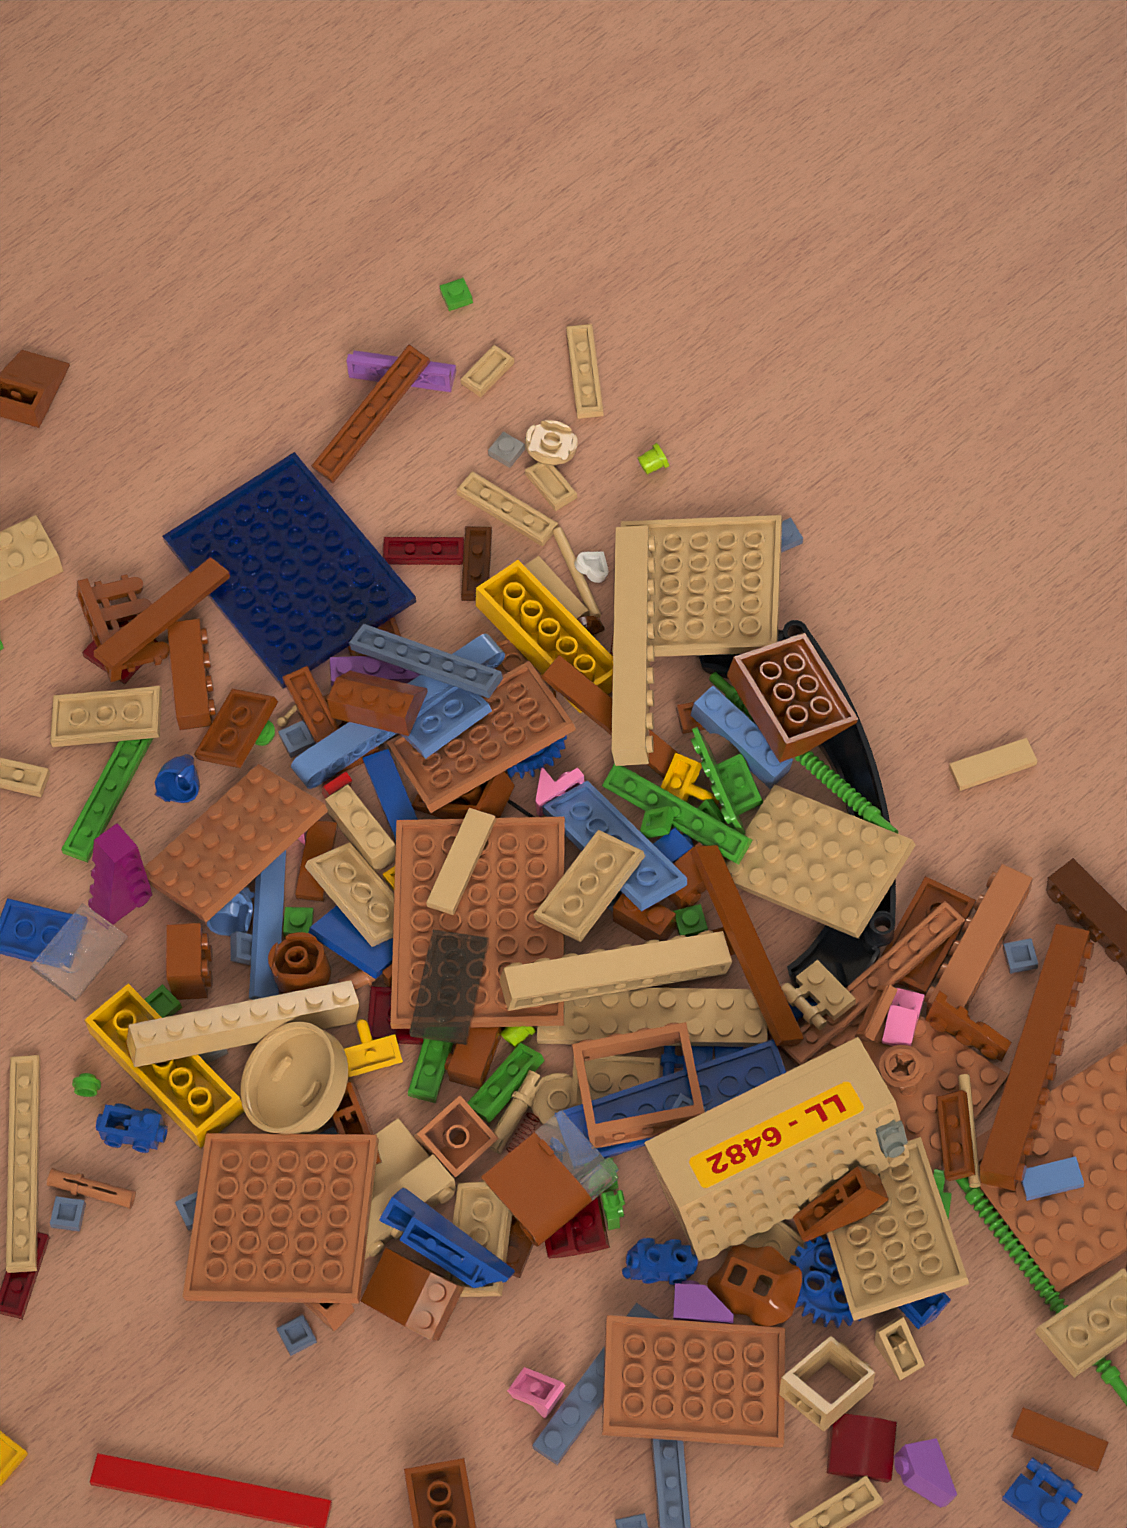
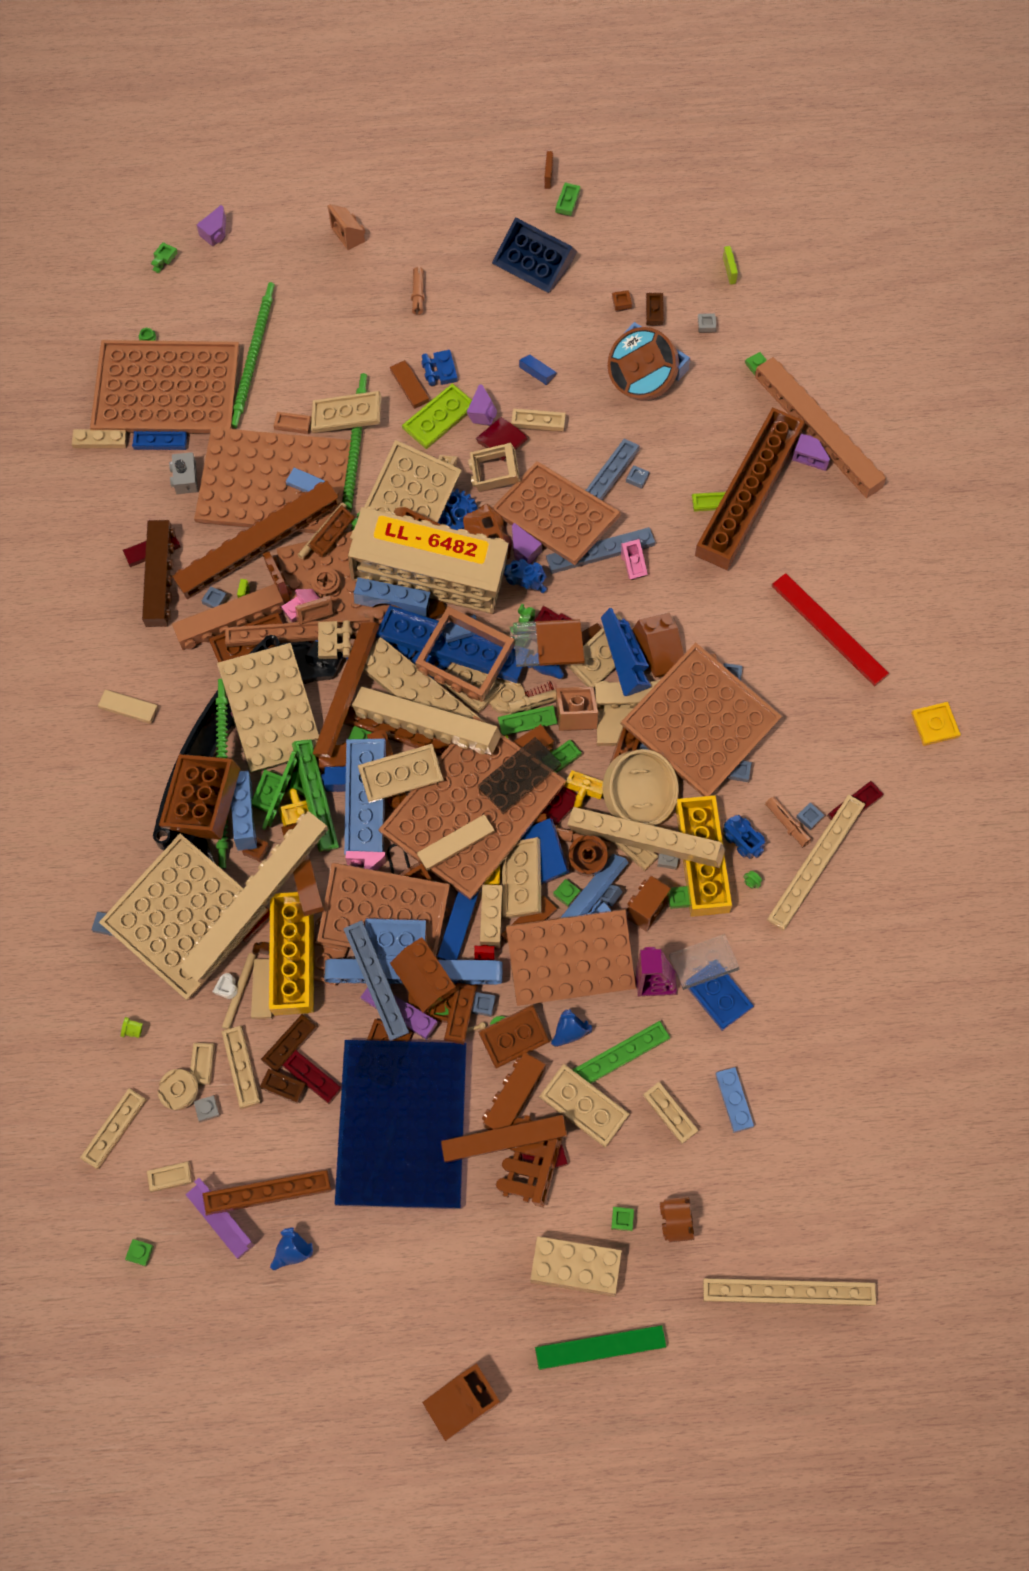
camera: 145 degrees left, 5 degrees up
(301, 390) = (291, 1249): none -> blue hat
(445, 518) = (282, 1086): none -> reddish brown plate
(657, 822) = (331, 792): bright green plate -> none
(977, 1422) = (438, 416): none -> lime tile
(993, 988) = (244, 588): none -> lime tile

